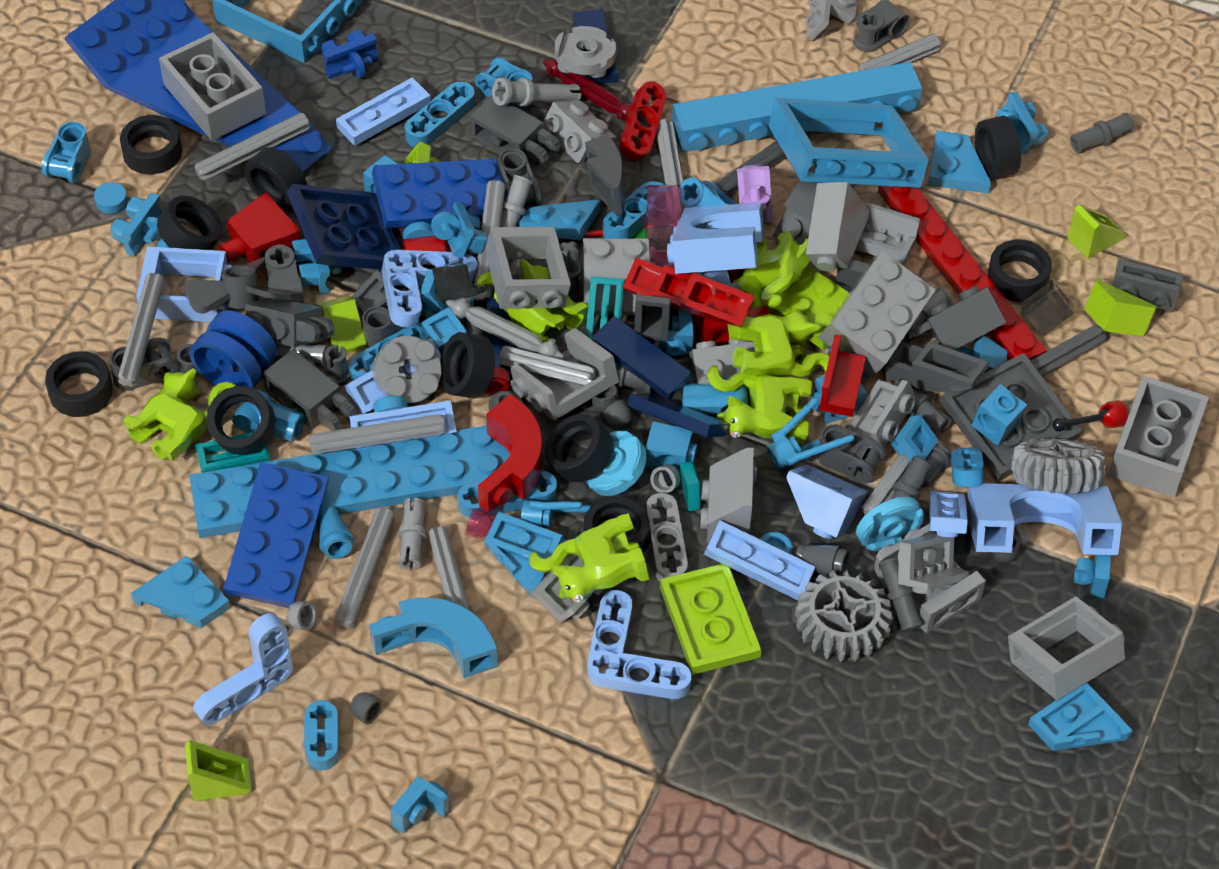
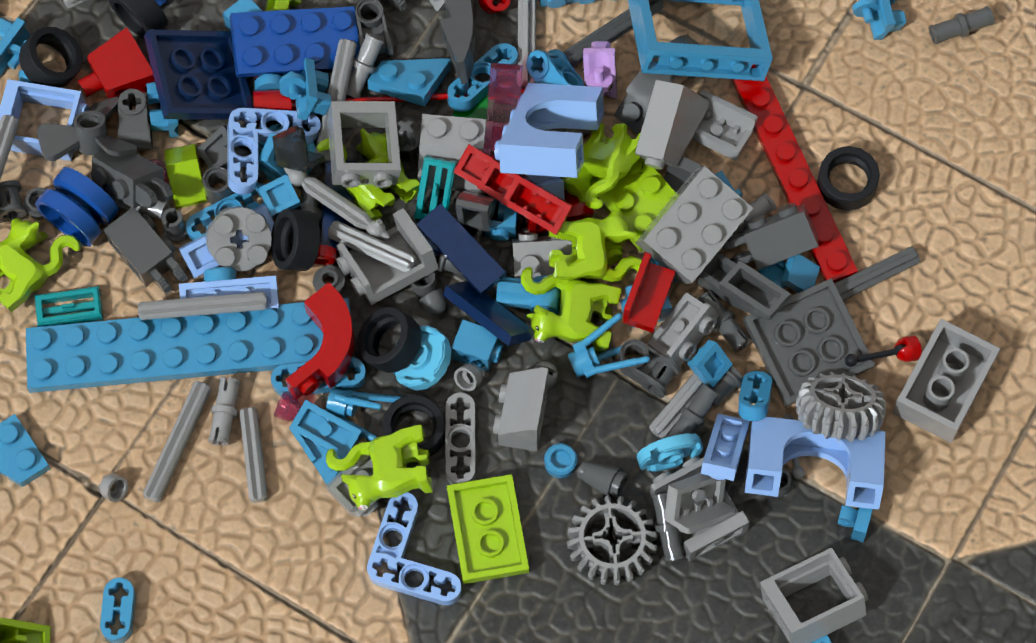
camera: 10 degrees right, 15 degrees up
(227, 399) = (52, 277): black tyre -> none
(270, 669) = (75, 540): light blue beam -> none
(276, 535) = (98, 402): blue plate -> none
(288, 421) = (98, 269): dark azure piece -> none
(334, 536) = (152, 407): dark azure cone -> none
(366, 707) = (160, 587): dark grey hinge -> none
(442, 624) = (238, 509): dark azure arch -> none
(691, 486) = (491, 387): teal tile -> none
(759, 560) = (541, 476): light blue plate -> none
(825, 500) = (615, 414): light blue slope -> none
(957, 164) = (809, 47): dark azure wing -> none
(998, 146) = (850, 38): black tyre -> none
(999, 415) = (792, 348): dark azure brick -> none
(1047, 308) = (868, 223): clear smoke panel -> none
(1092, 231) = (931, 139): lime slope -> none
(1118, 310) = (935, 234): lime slope -> none
(1149, 283) = (970, 207): dark grey bracket -> none

